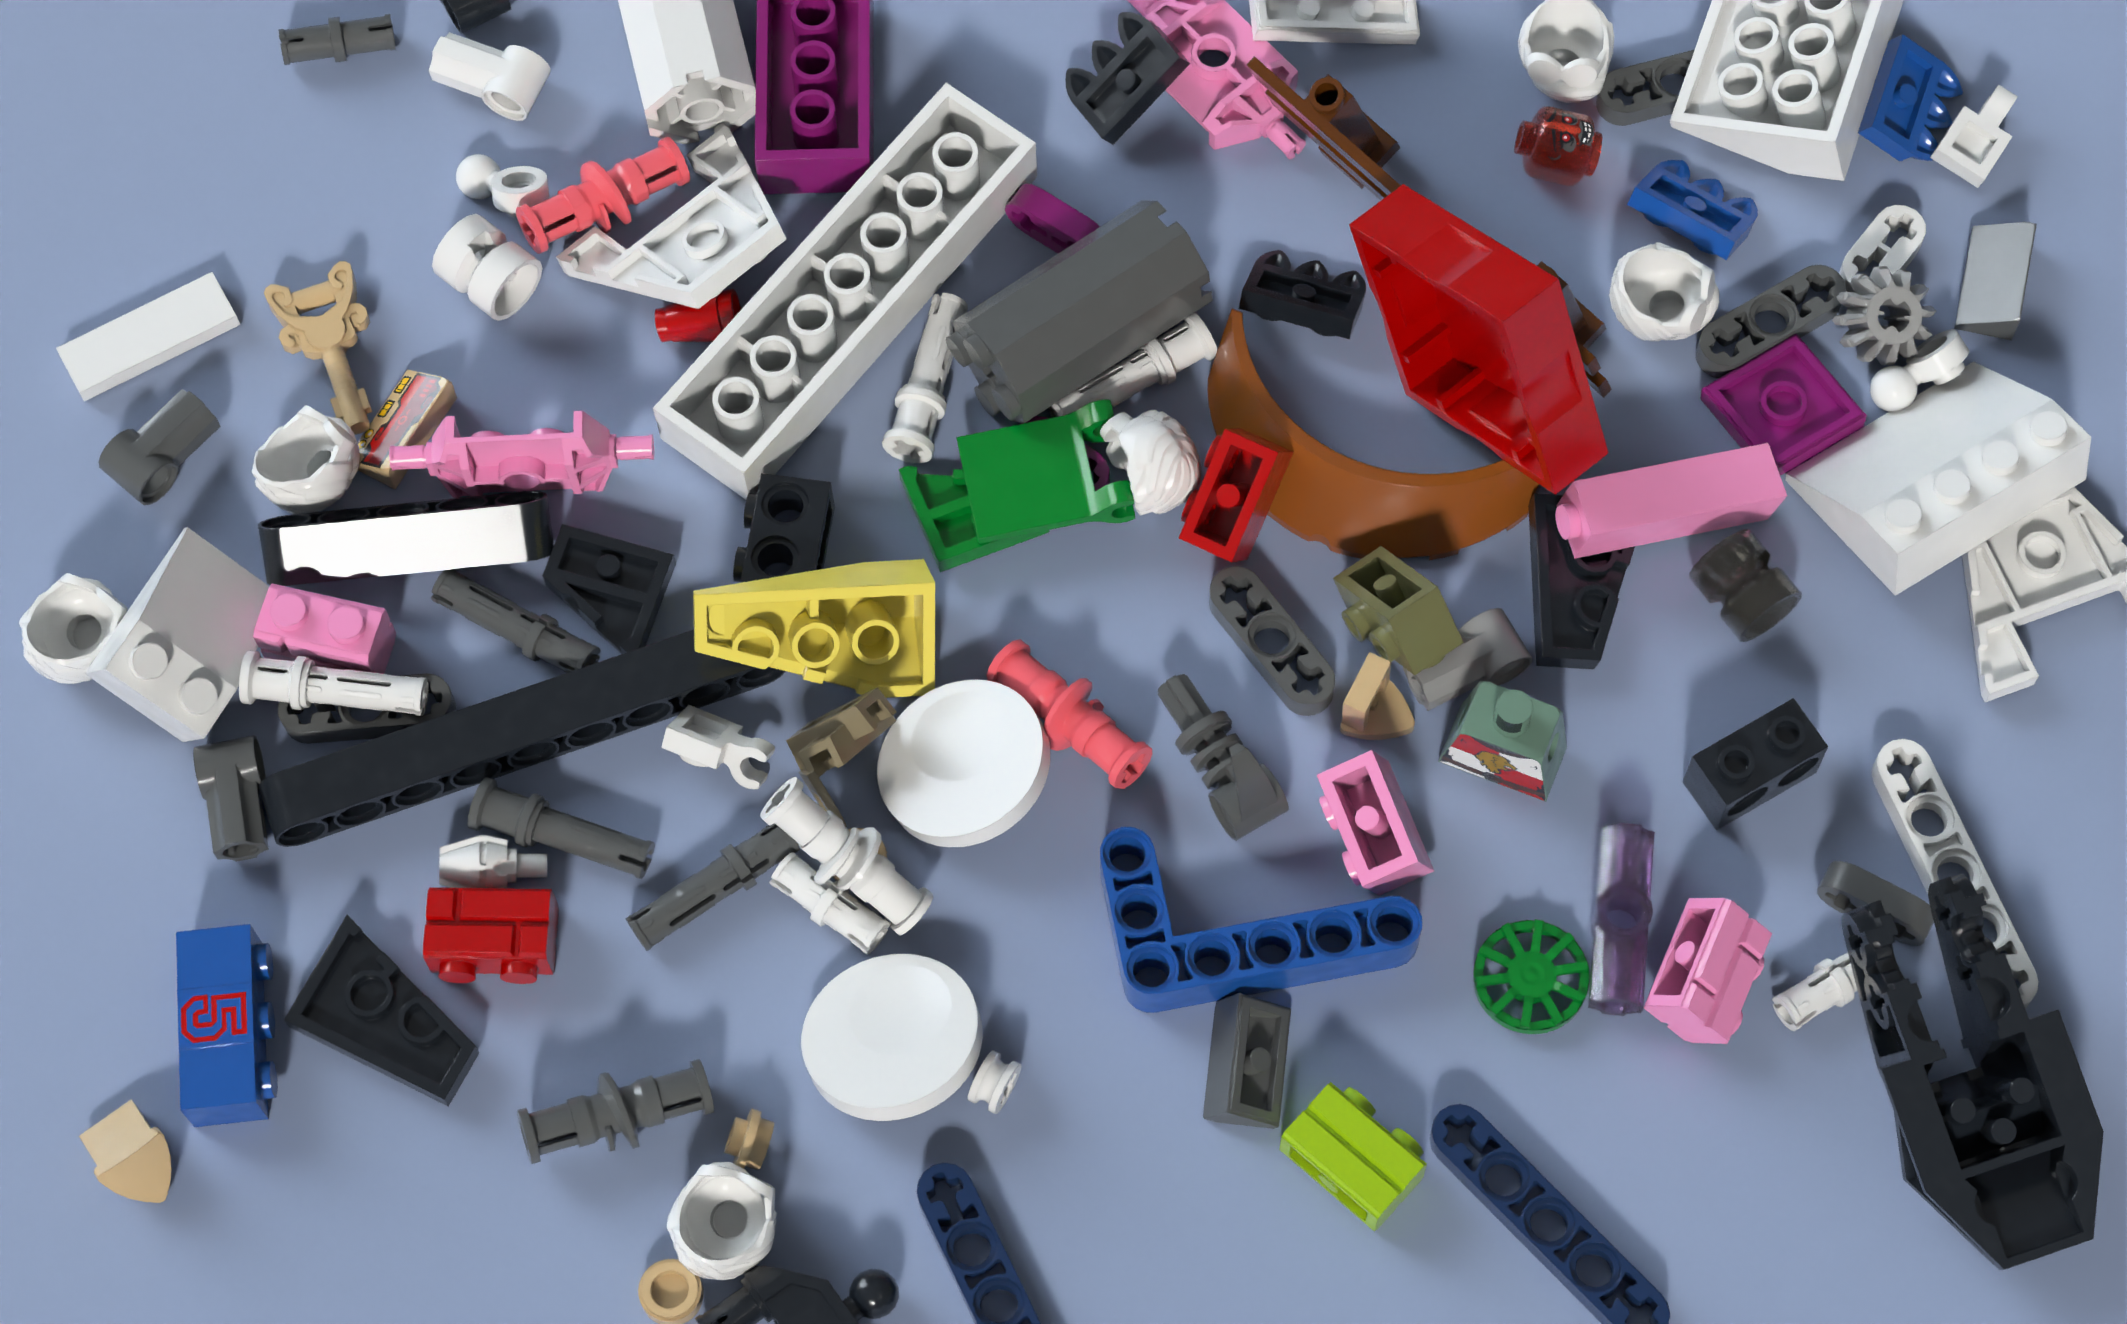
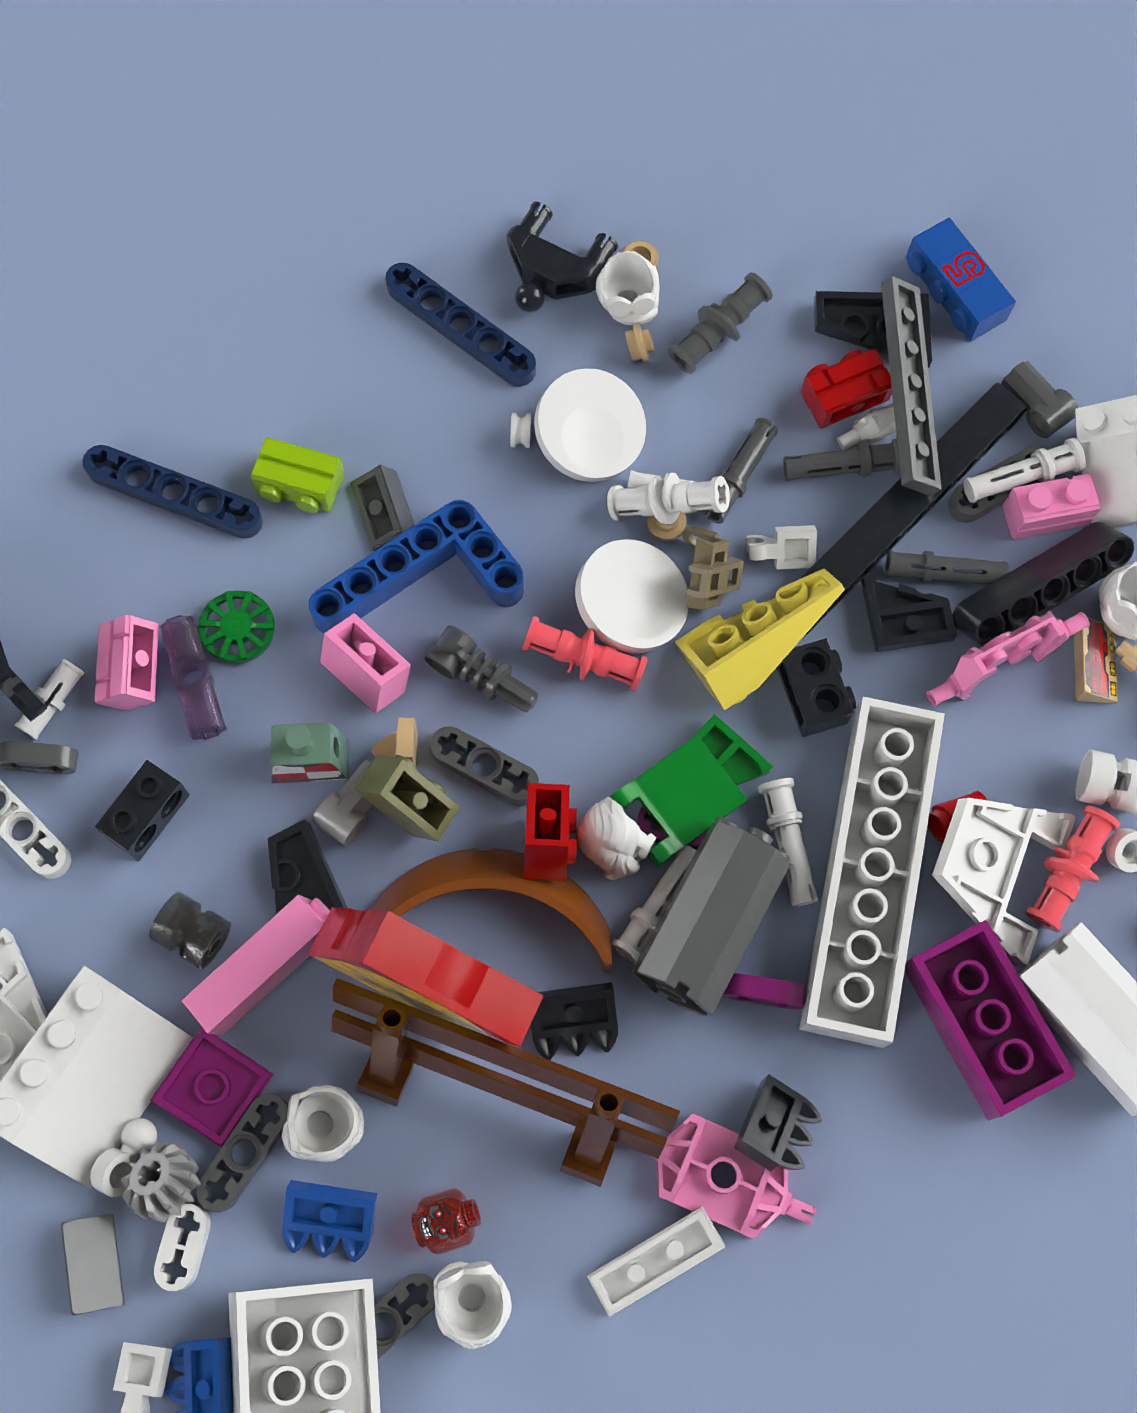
camera: 150 degrees right, 5 degrees up
(130, 1155) = (965, 199): tan tile -> none
(410, 867) = (910, 386): none -> dark grey plate

